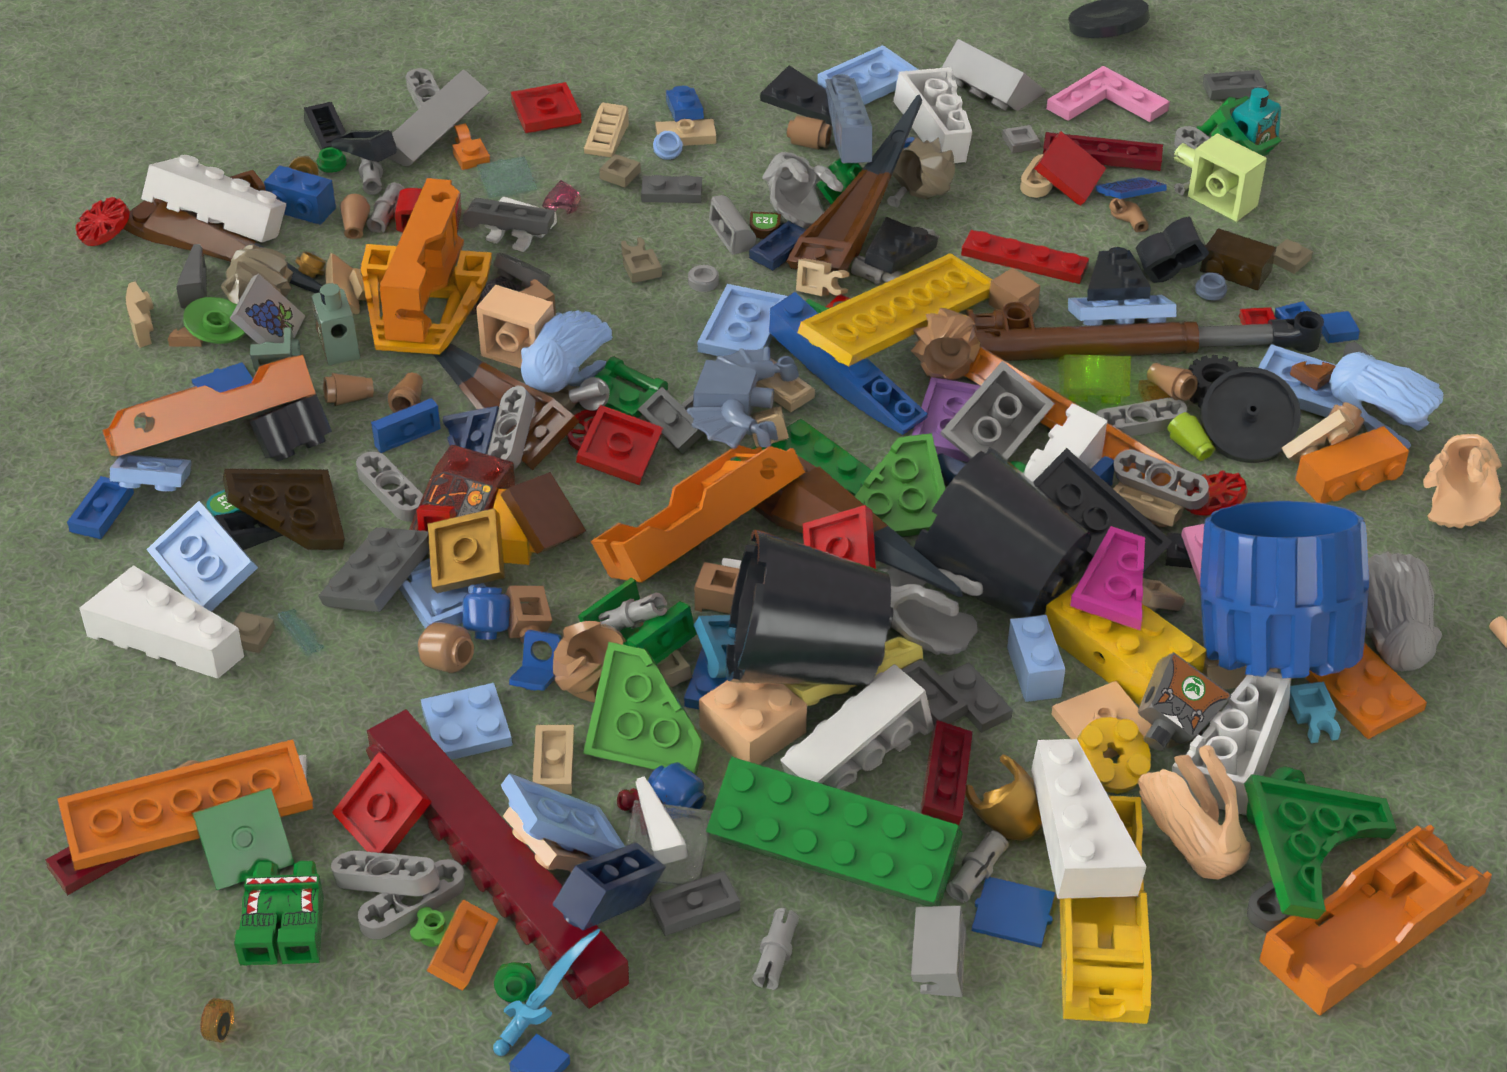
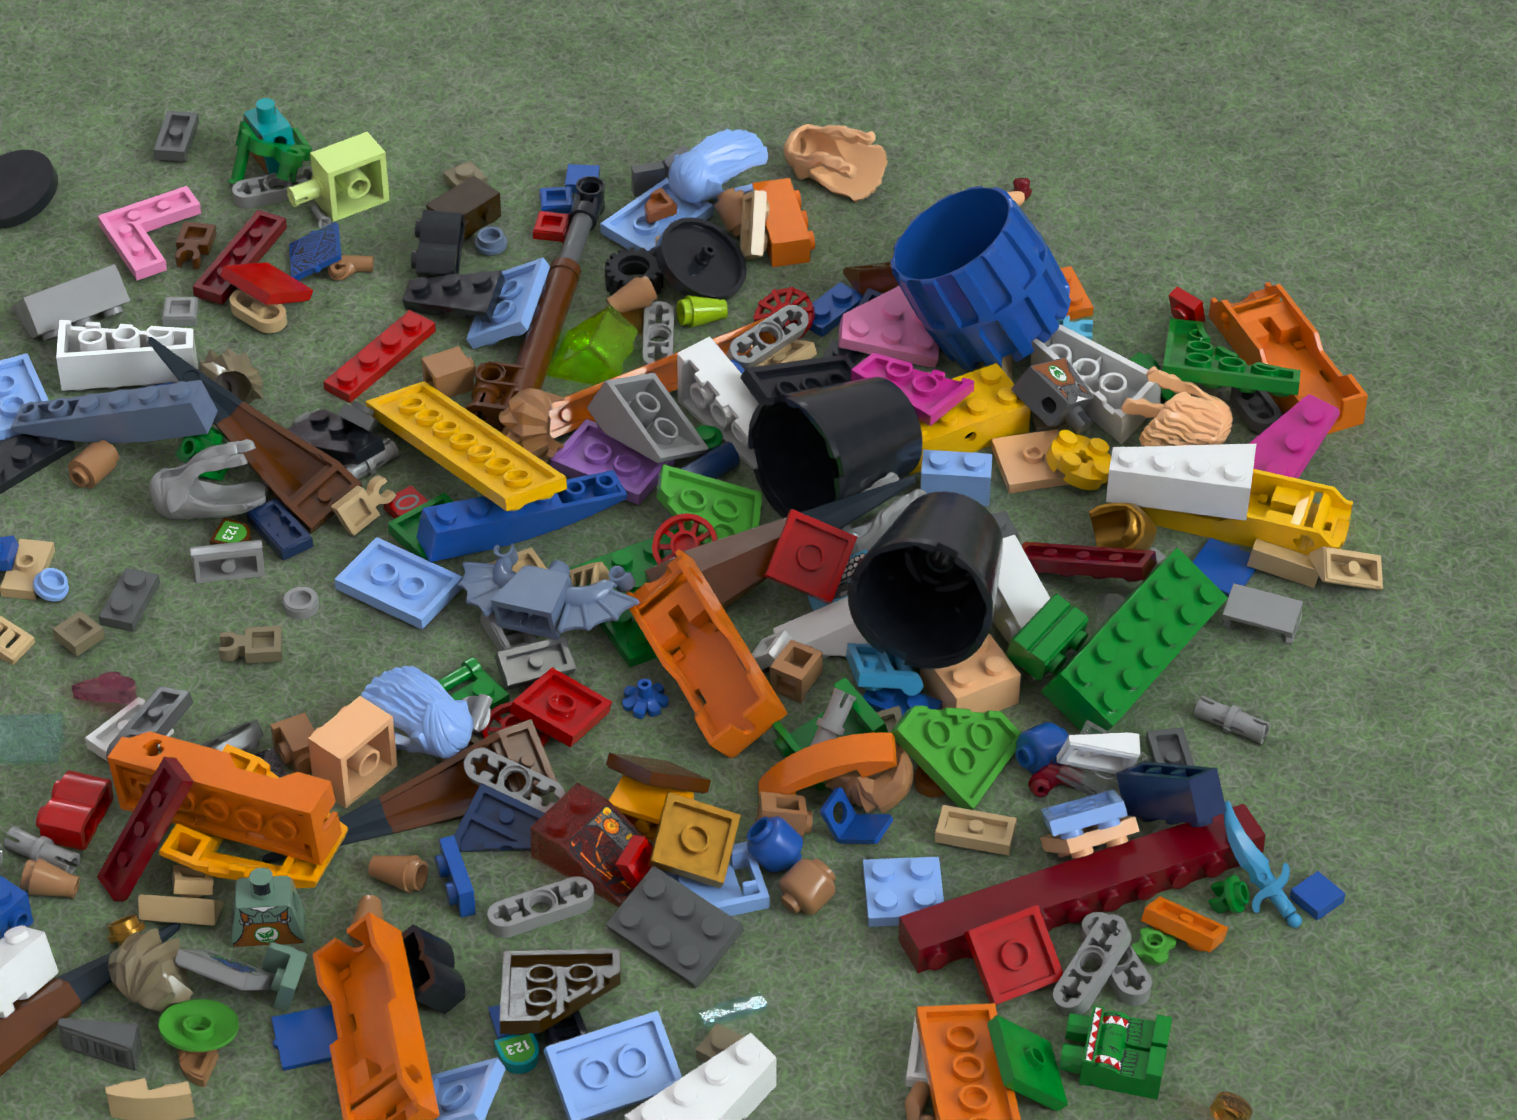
camera: 75 degrees left, 0 degrees up
(383, 225) = (145, 829): none -> dark red plate
(578, 623) = (831, 758): none -> orange slope
(655, 499) = (645, 699): none -> blue plant
(798, 747) = (1048, 637): none -> green brick
(848, 474) = (683, 539): none -> red wheel
(915, 245) = (359, 415): none -> dark grey plate
(1040, 963) = (1283, 563): none -> tan slope
(1042, 1020) = (1348, 567): none -> tan slope
(1105, 123) = (193, 241): none -> reddish brown plate
(1215, 929) = (1294, 437): none -> dark pink wing
(1409, 808) = (1186, 306): none -> red plate

